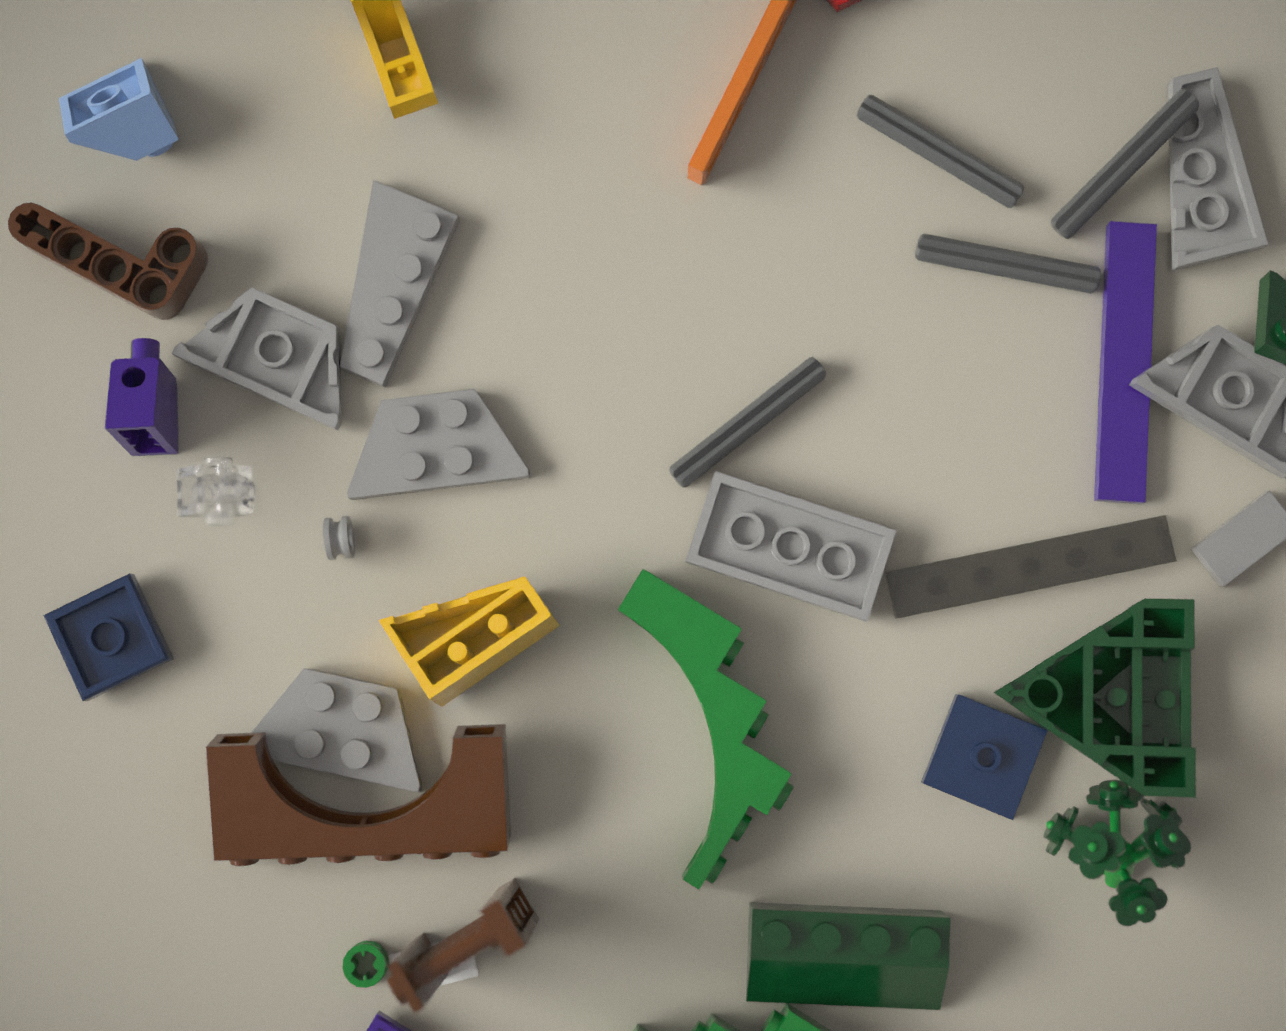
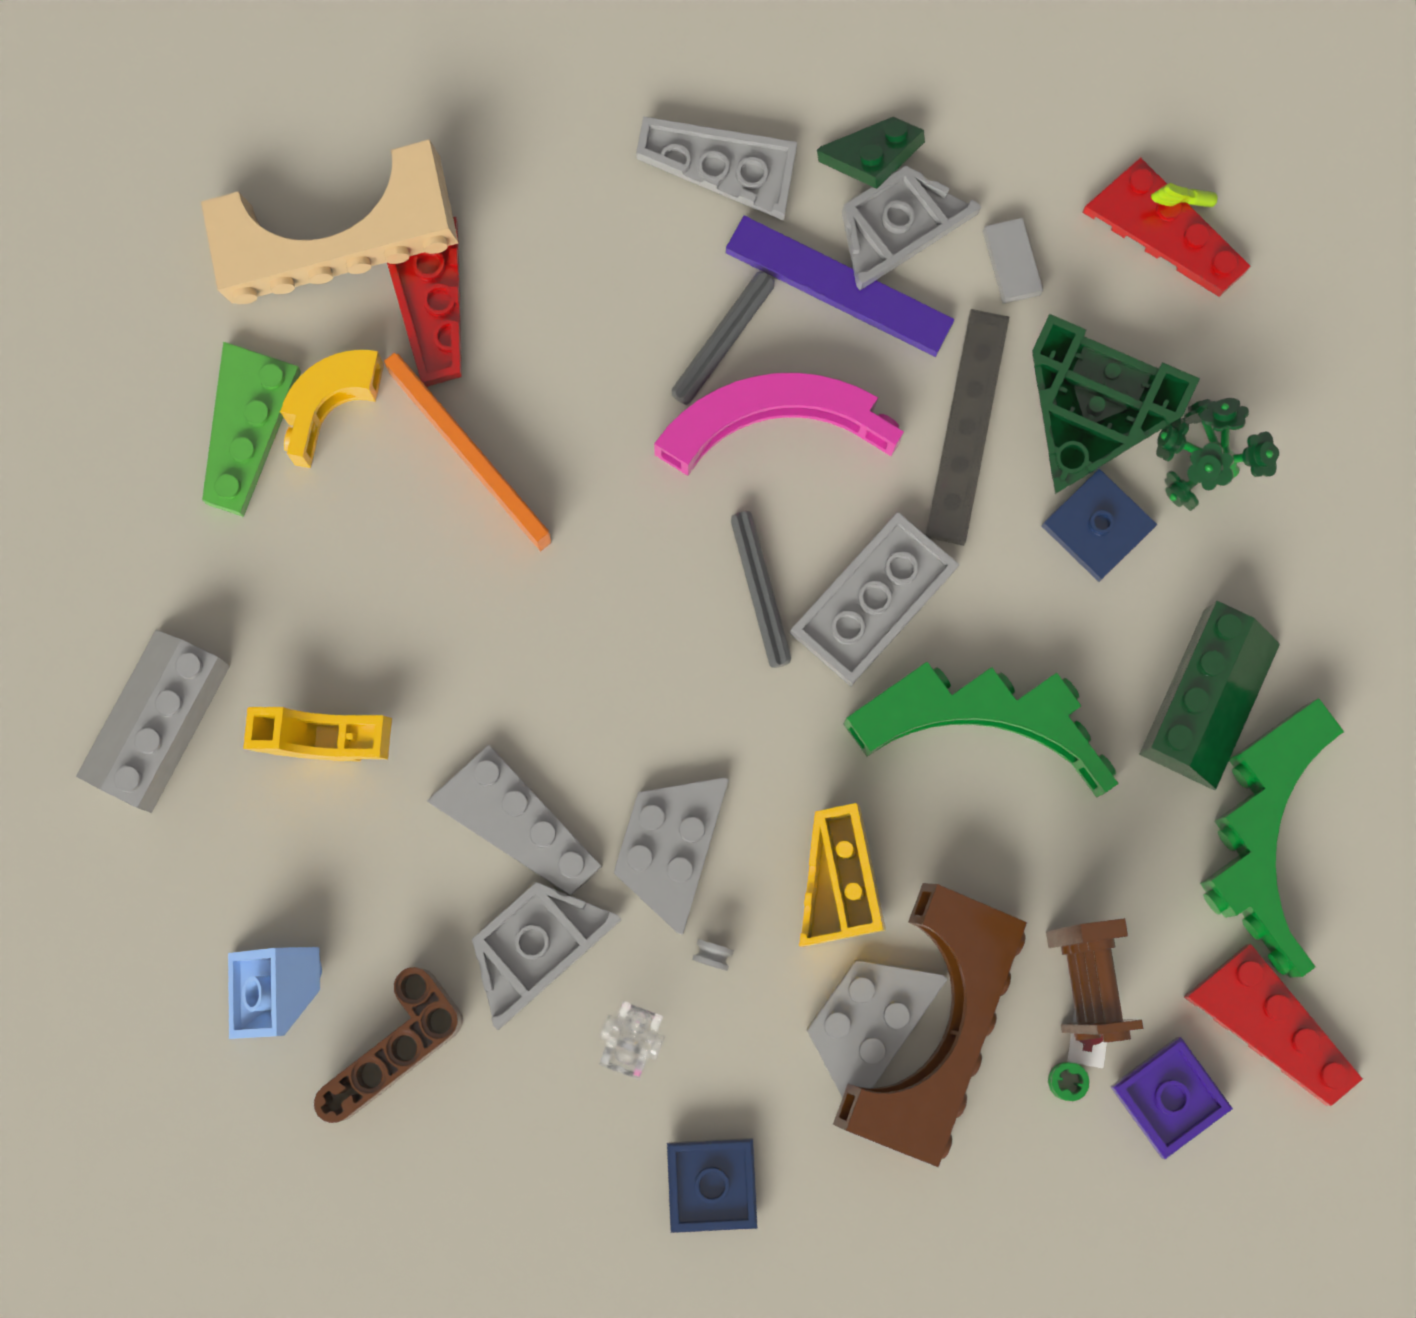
camera: 75 degrees left, 5 degrees down
(143, 402) = (540, 1073): dark purple torso -> none
(940, 151) = (610, 348): dark grey axle -> none
(959, 335) = (772, 398): none -> dark pink arch
(1125, 163) = (687, 216): dark grey axle -> none

